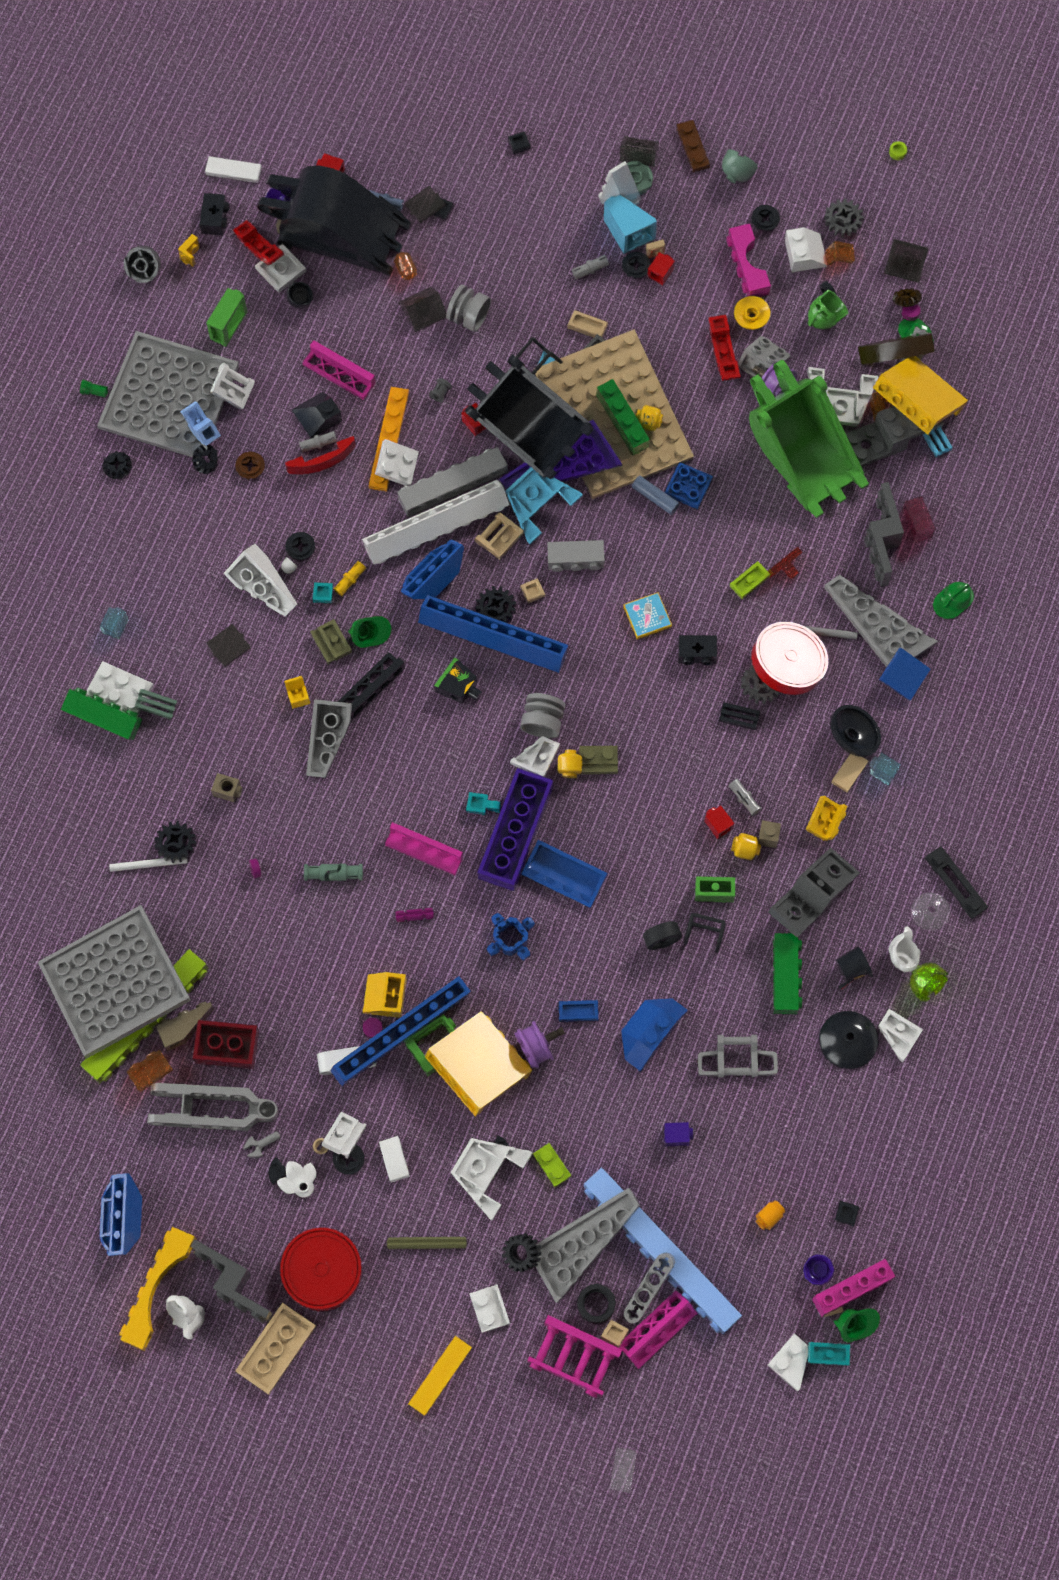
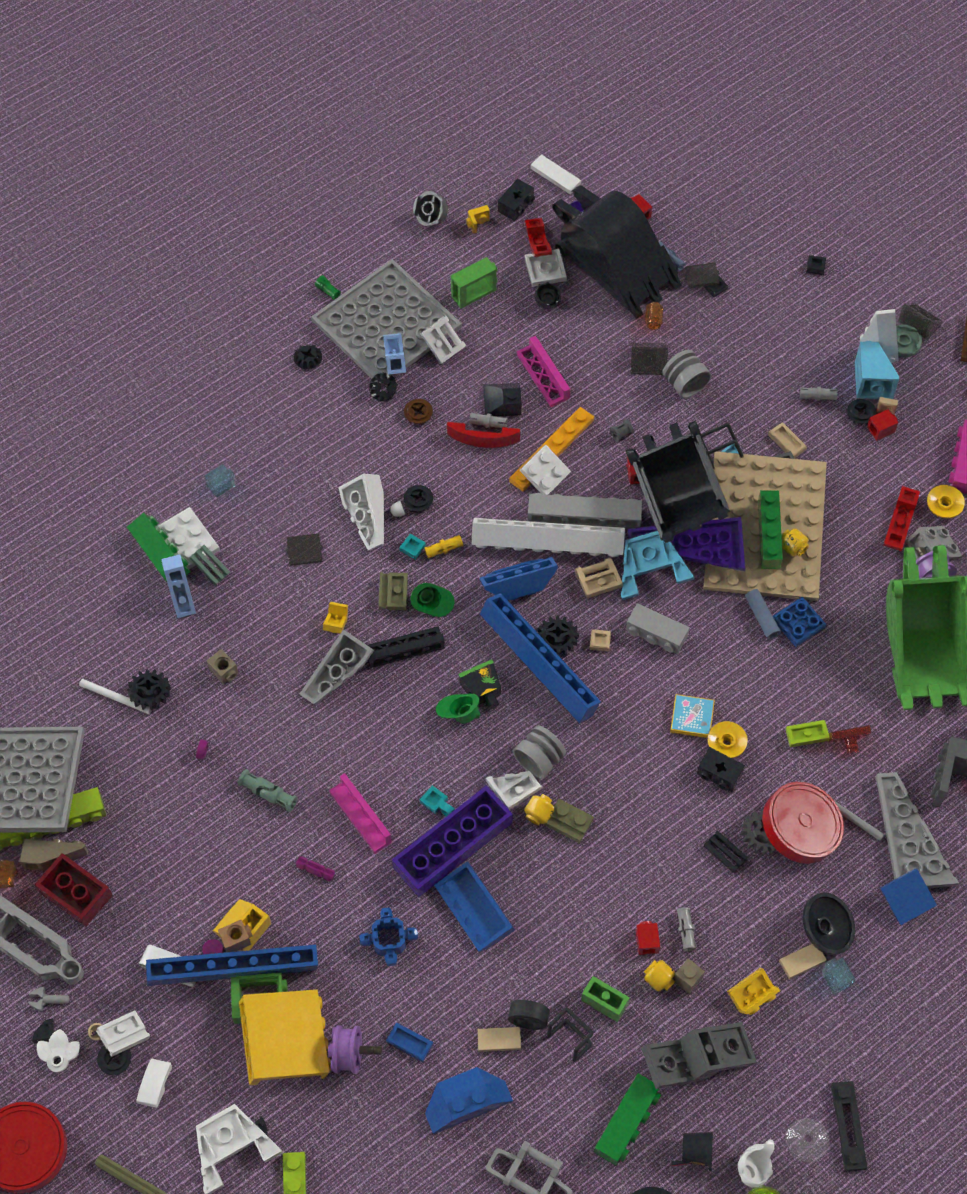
camera: 30 degrees right, 10 degrees down
(144, 737) = (178, 586): none -> light blue slope
(387, 1014) = (228, 931): none -> medium nougat brick
(451, 713) = (460, 707): none -> green piece
(648, 968) = (499, 1039): none -> tan tile
(688, 612) = (729, 732): none -> yellow dish

